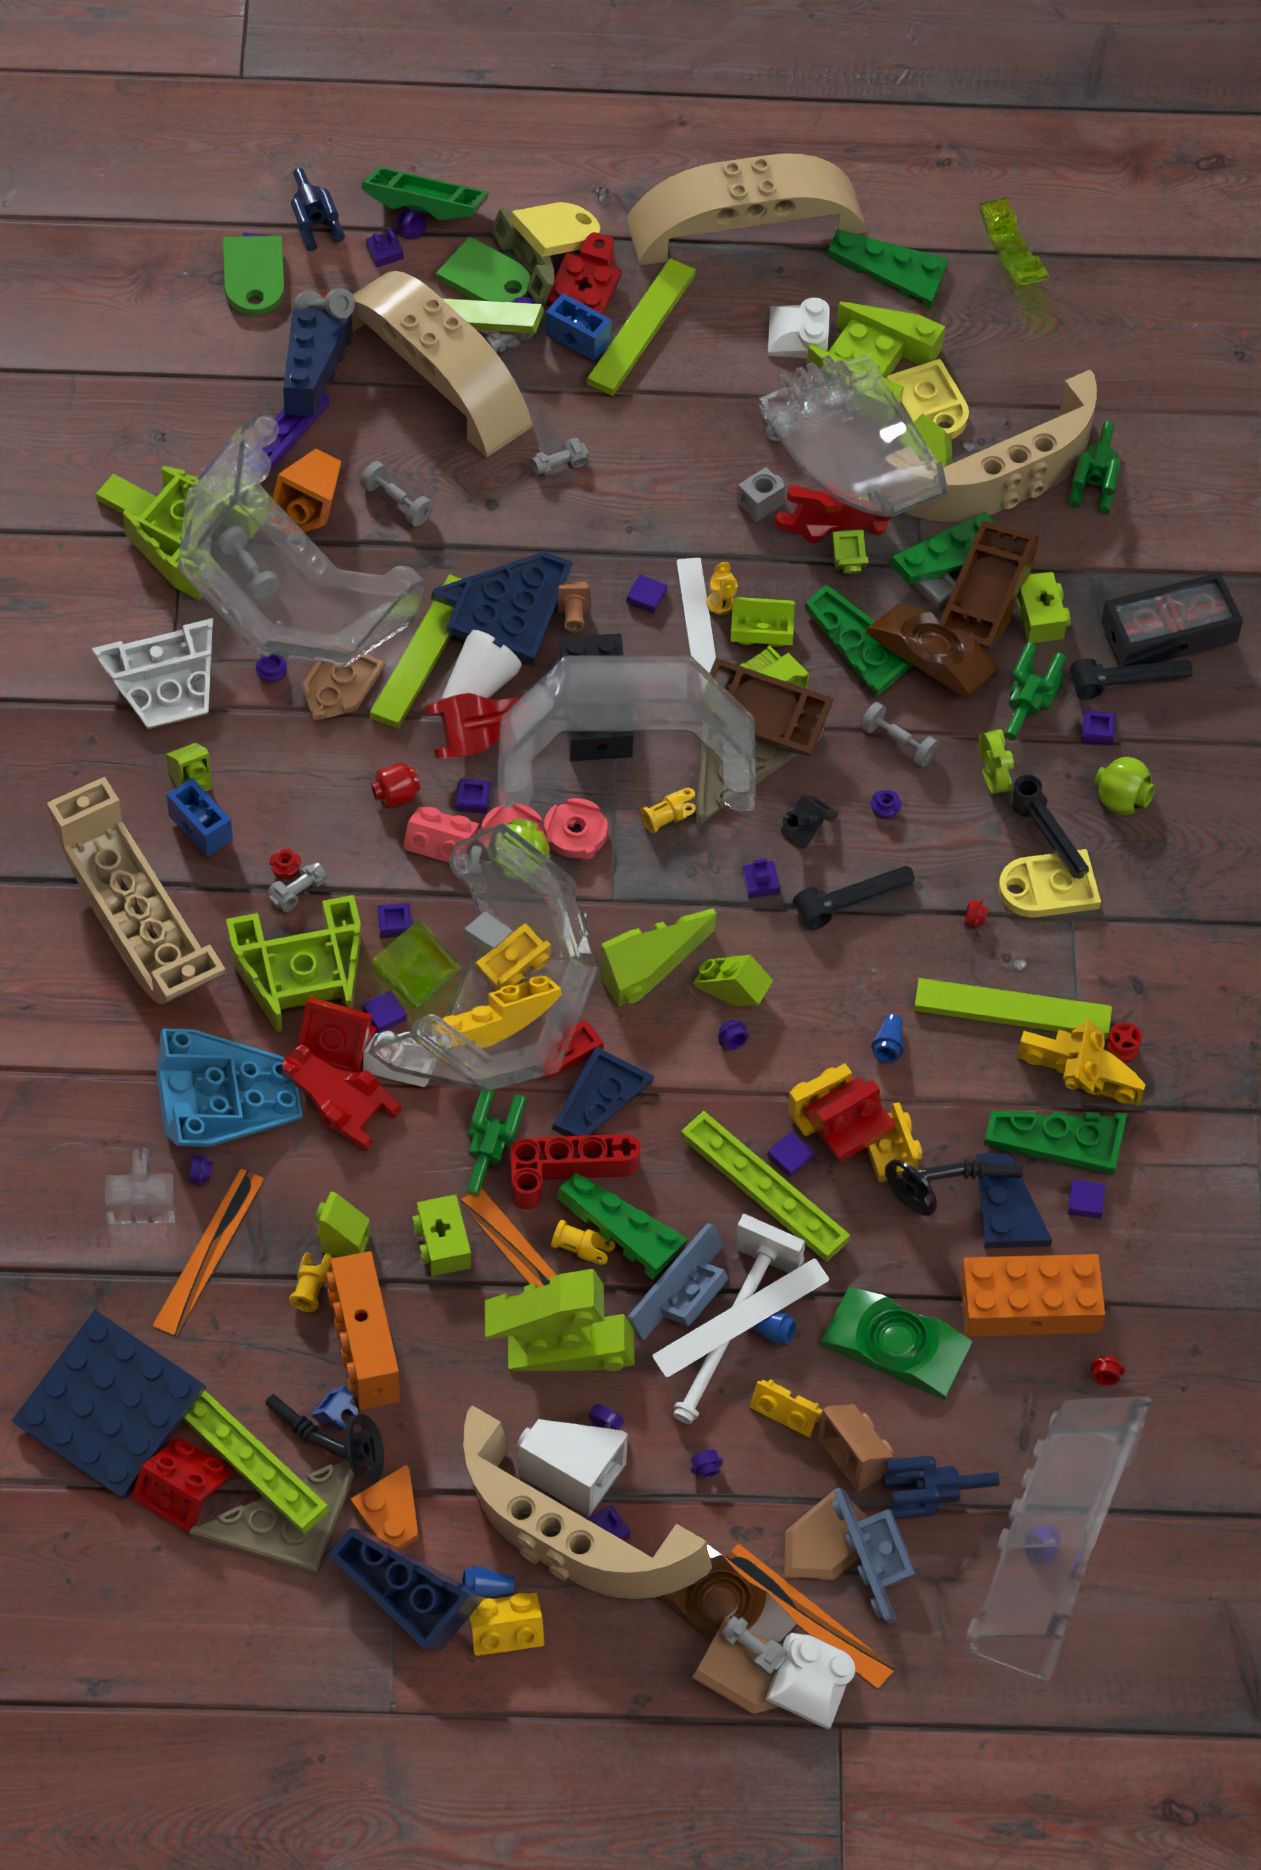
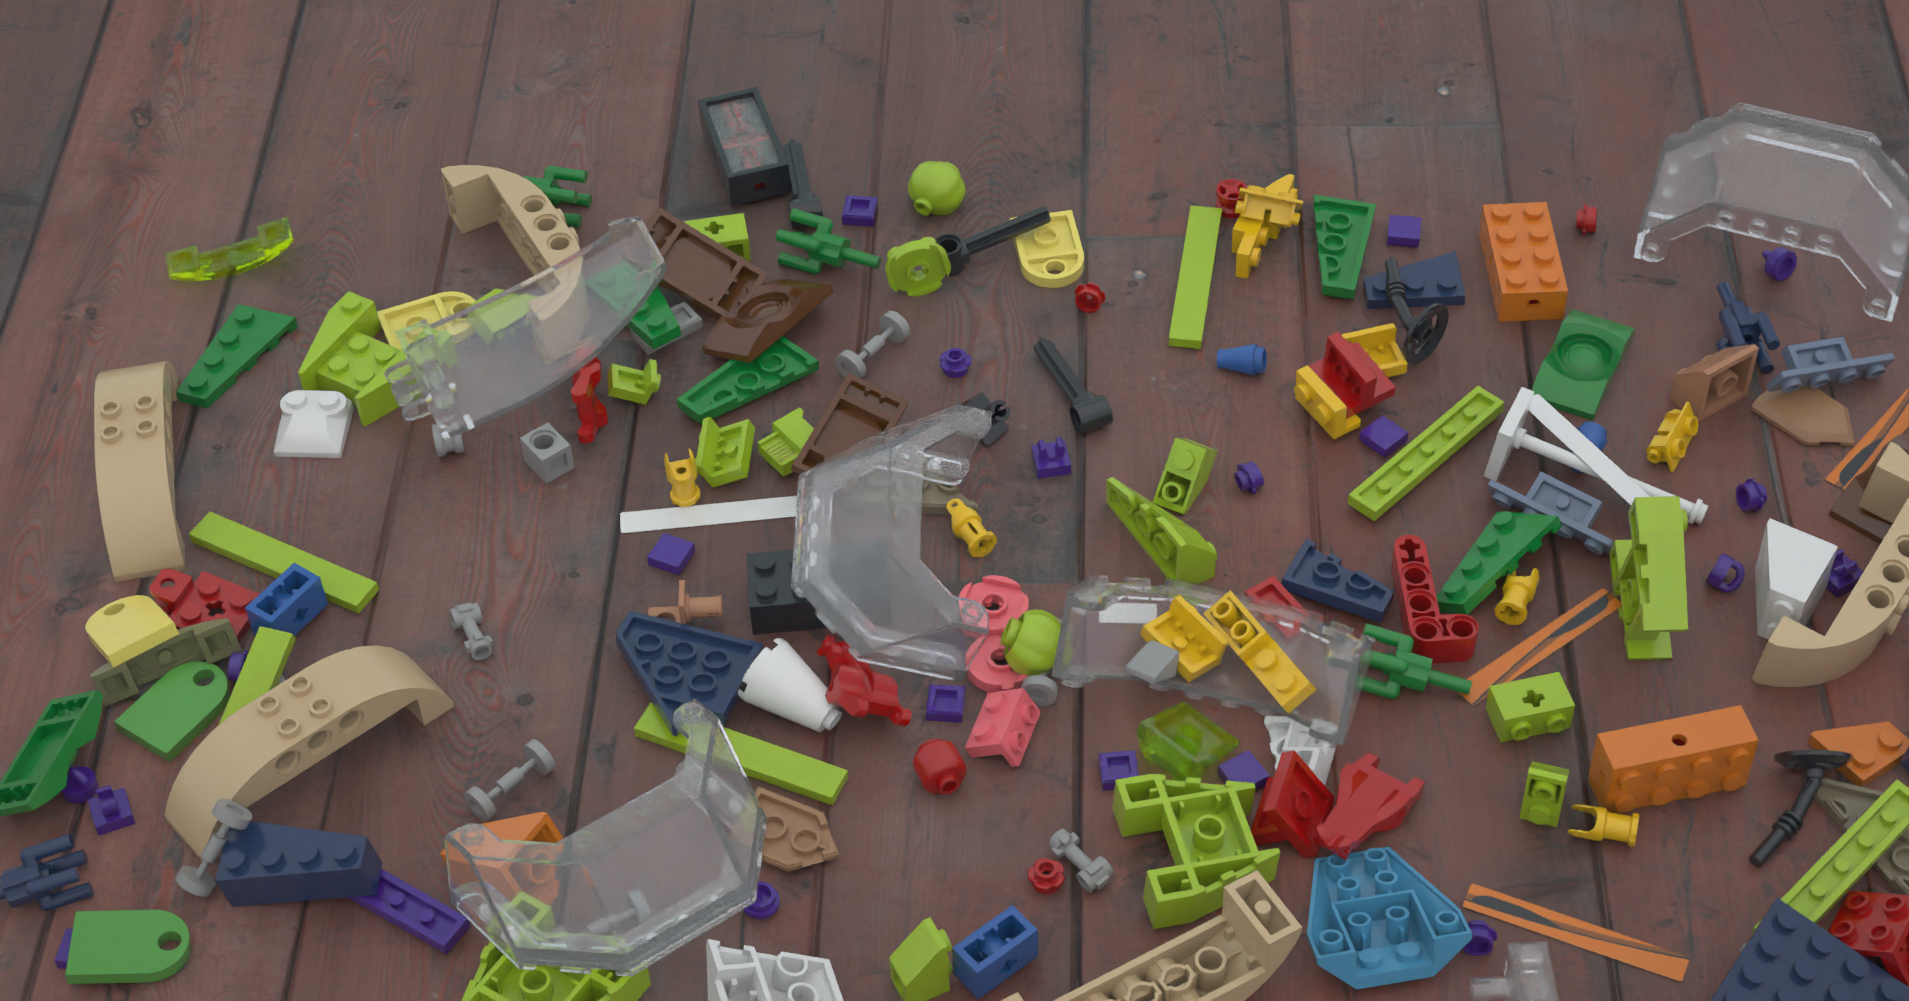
camera: 85 degrees left, 10 degrees down
(333, 1405) = (1758, 797): blue tile -> none

